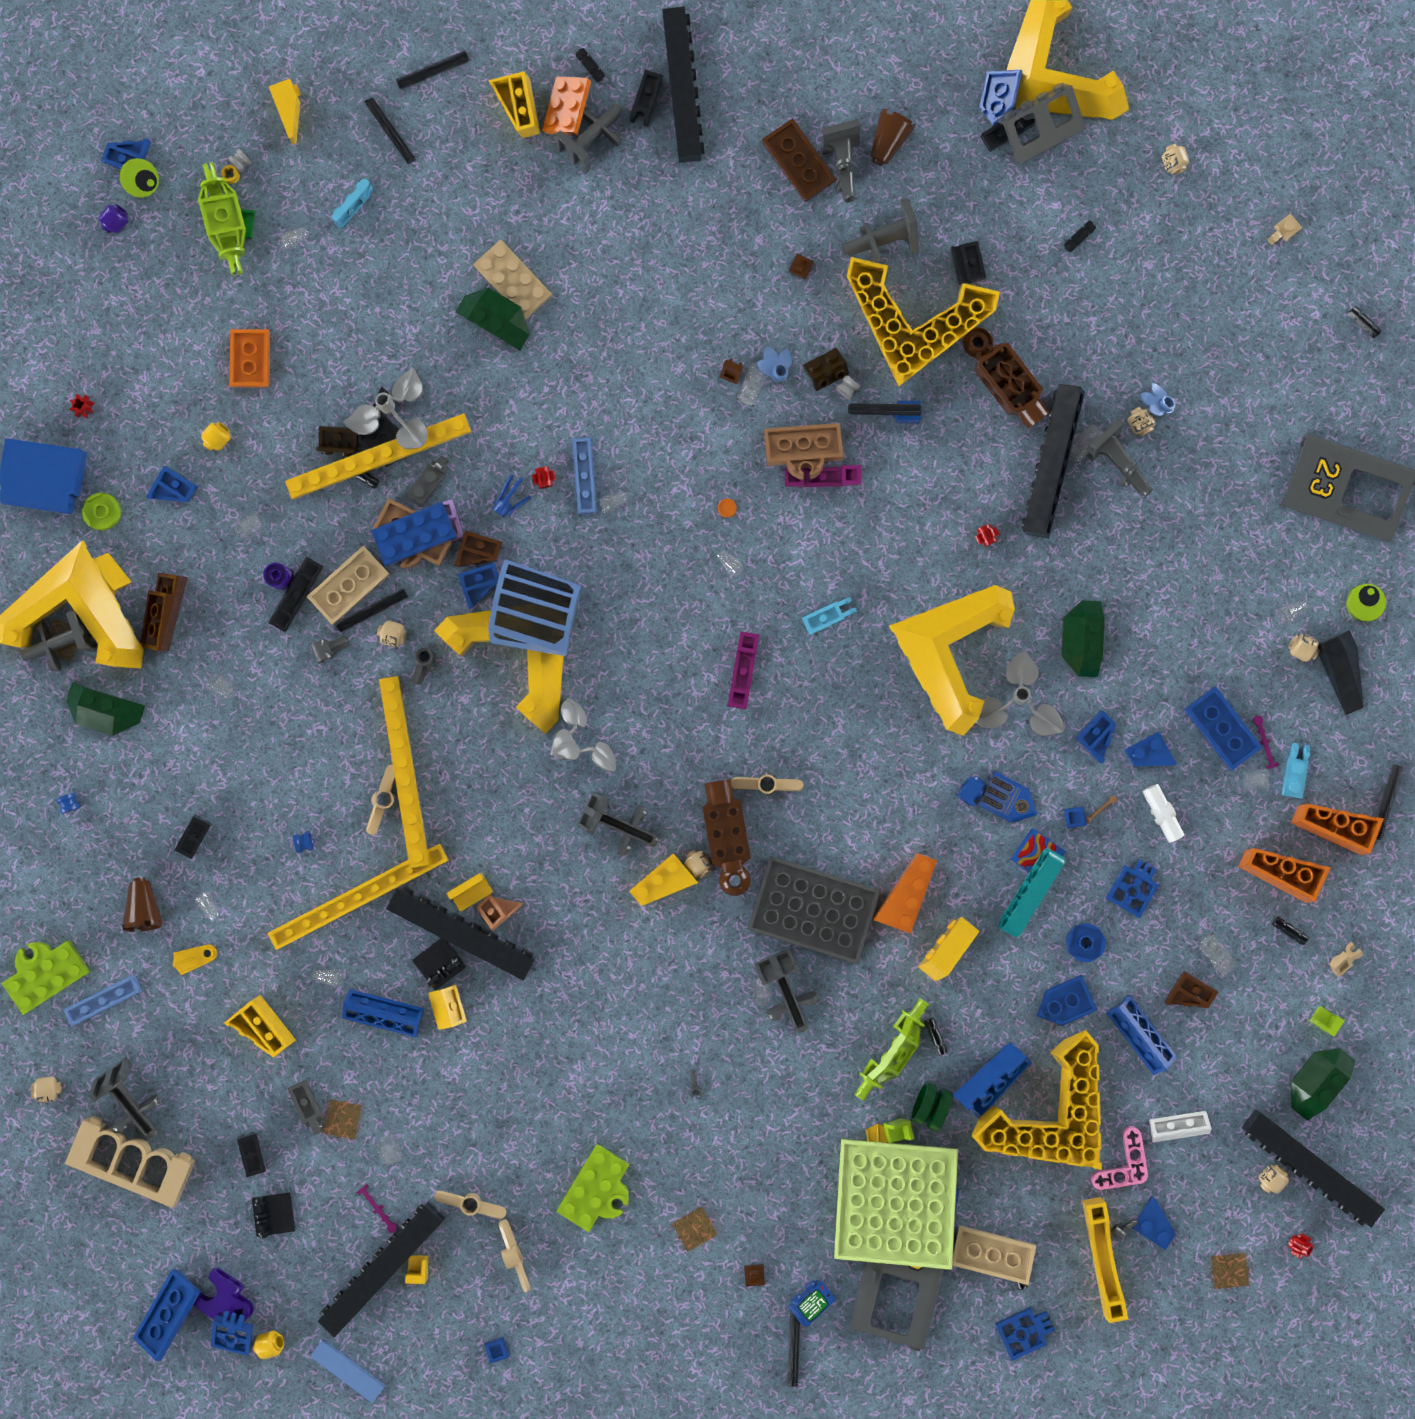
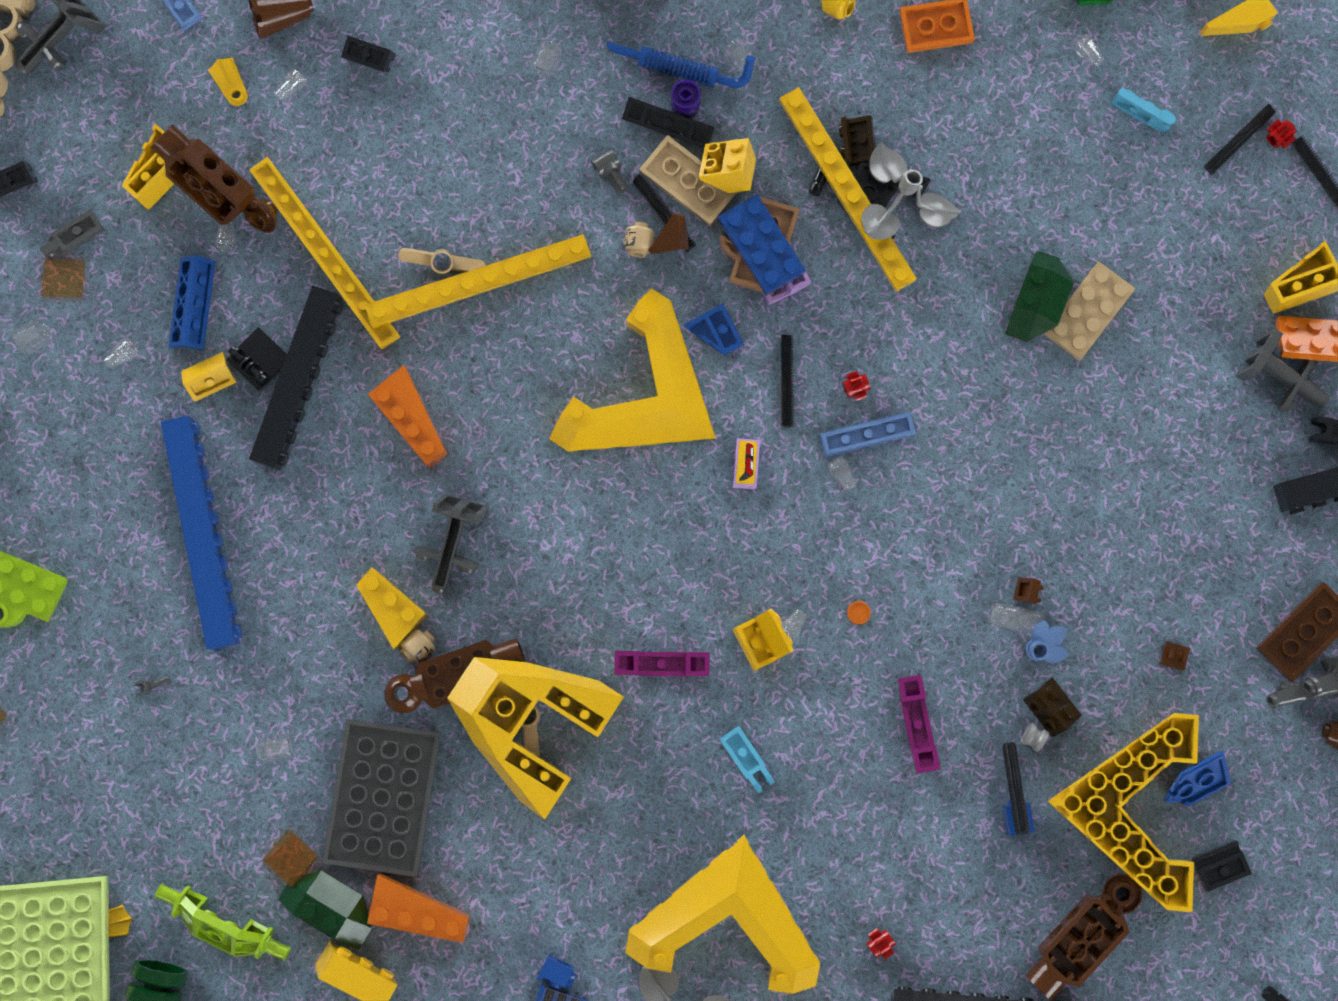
camera: 85 degrees right, 5 degrees down
(250, 573) = (683, 67): none -> blue piece
(284, 979) = (212, 181): none -> reddish brown brick
(303, 842) = (379, 179): blue wheel -> none
(342, 549) = (728, 165): none -> yellow slope
(392, 96) = (1281, 133): none -> red gear
(395, 605) = (672, 237): none -> reddish brown slope
(415, 1076) = (122, 352): none -> clear cone
(421, 667) = (606, 281): dark grey axle -> none
(428, 481) = (828, 252): dark grey hinge -> none
(470, 892) = (347, 381): yellow panel -> none
(477, 550) = (756, 322): reddish brown wing -> none
(497, 910) = (329, 415): nougat slope -> none
(502, 505) = (814, 343): blue plant -> none
(502, 847) = (406, 411): none -> orange wedge
(529, 533) = (786, 388): none -> black axle
(532, 610) = (693, 396): windscreen -> none
(565, 746) = (532, 462): light grey plant -> none
(576, 1029) = (200, 533): none -> blue brick
(592, 577) = (746, 463): none -> slope
(737, 586) = (763, 639): none -> yellow bracket
(753, 804) = (496, 700): none -> yellow piece
(777, 968) = (301, 762): dark grey piece -> none
(803, 447) = (949, 694): medium nougat plate -> none
(849, 989) = (290, 858): none -> clear orange piece
(892, 964) = (329, 907): none -> dark green wedge
(898, 1130) = (124, 945): lime panel -> none
(901, 266) = (1199, 780): none -> blue tile
(903, 229) = (1246, 774): dark grey piece -> none
(935, 1036) = (246, 975): black axle -> none

